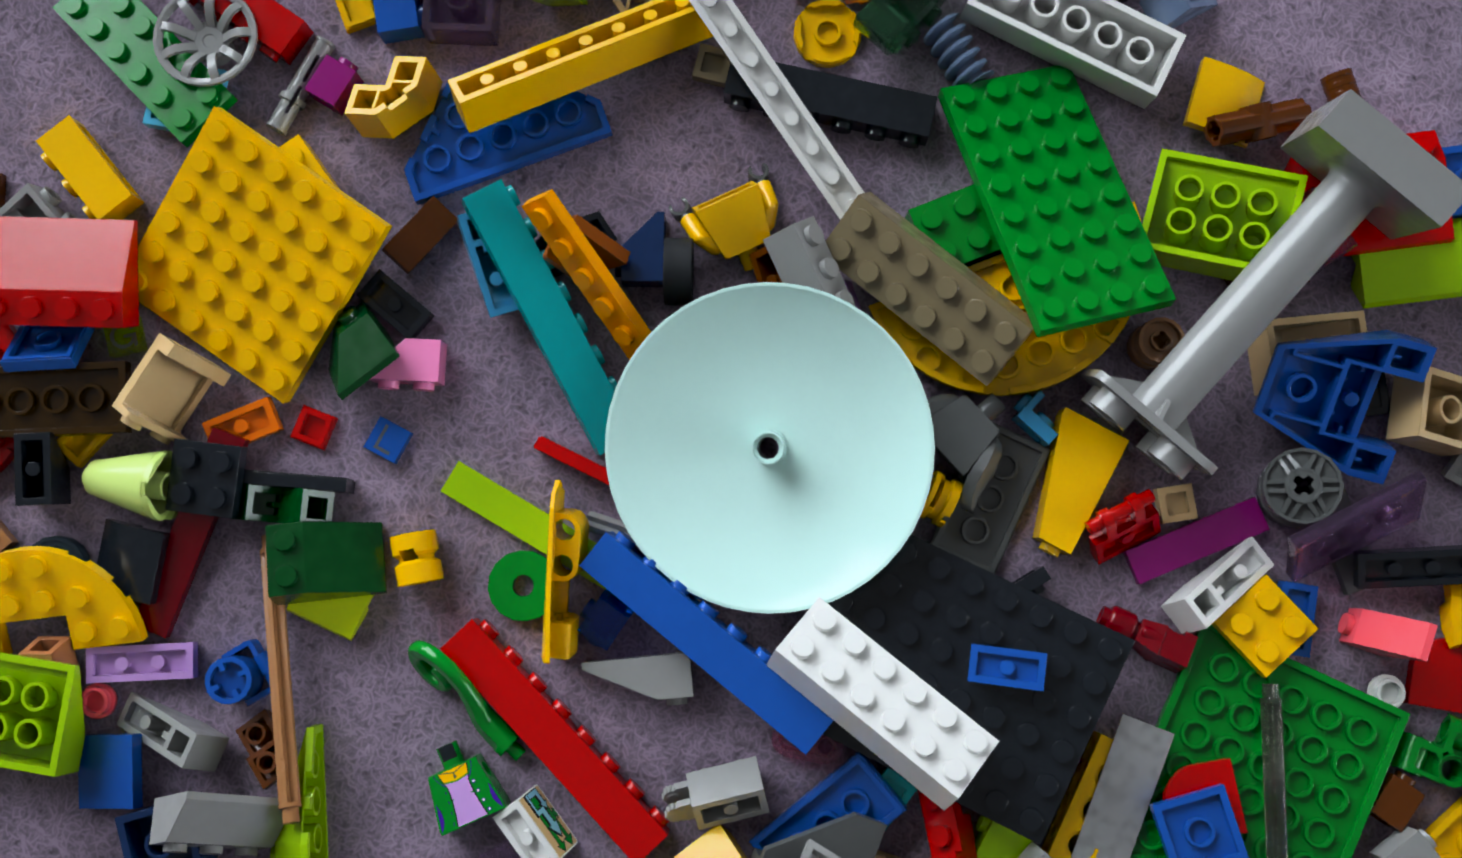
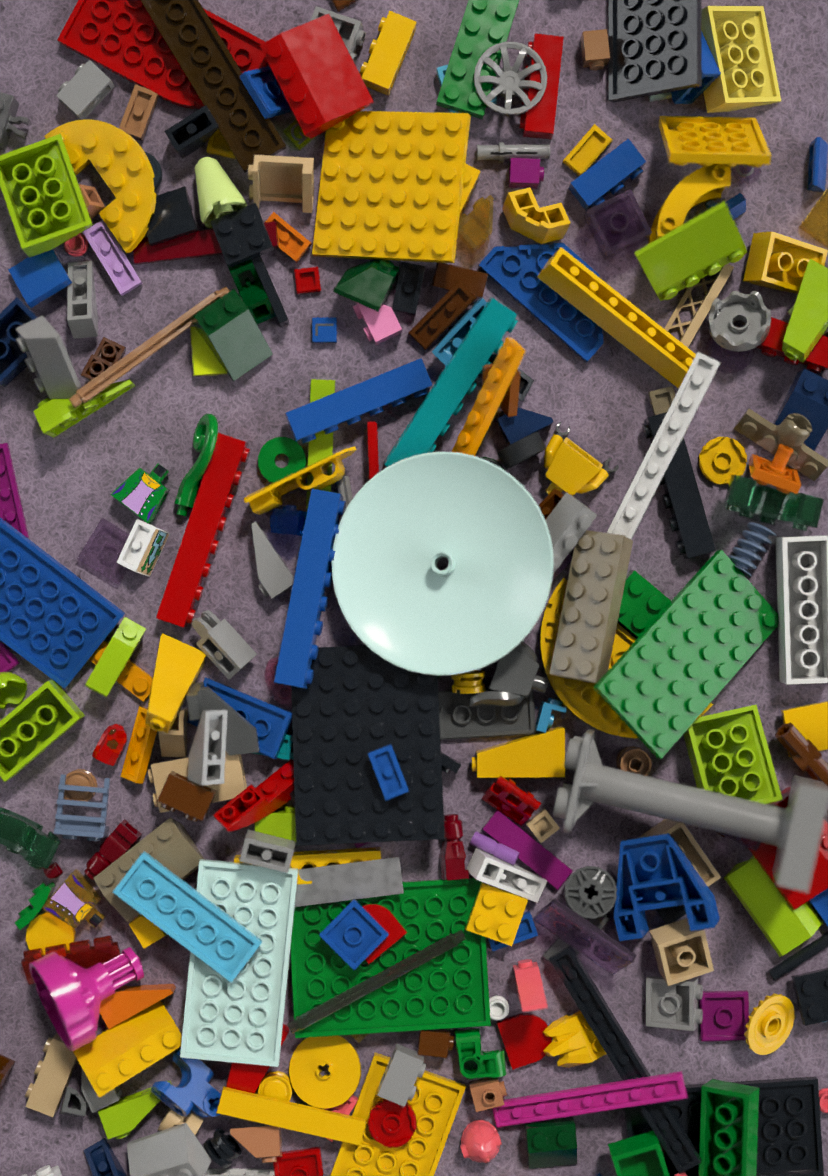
camera: 60 degrees right, 5 degrees up
(239, 676) = (136, 321): blue piece -> none
(365, 176) = (477, 226): none -> clear yellow slope
(412, 570) = (254, 389): yellow wheel -> none
(452, 280) = (442, 315): none -> reddish brown tile
(500, 445) = (358, 400): none -> blue brick
(882, 704) = (328, 709): white brick -> none
(1177, 579) = (492, 847): none -> medium lavender piece

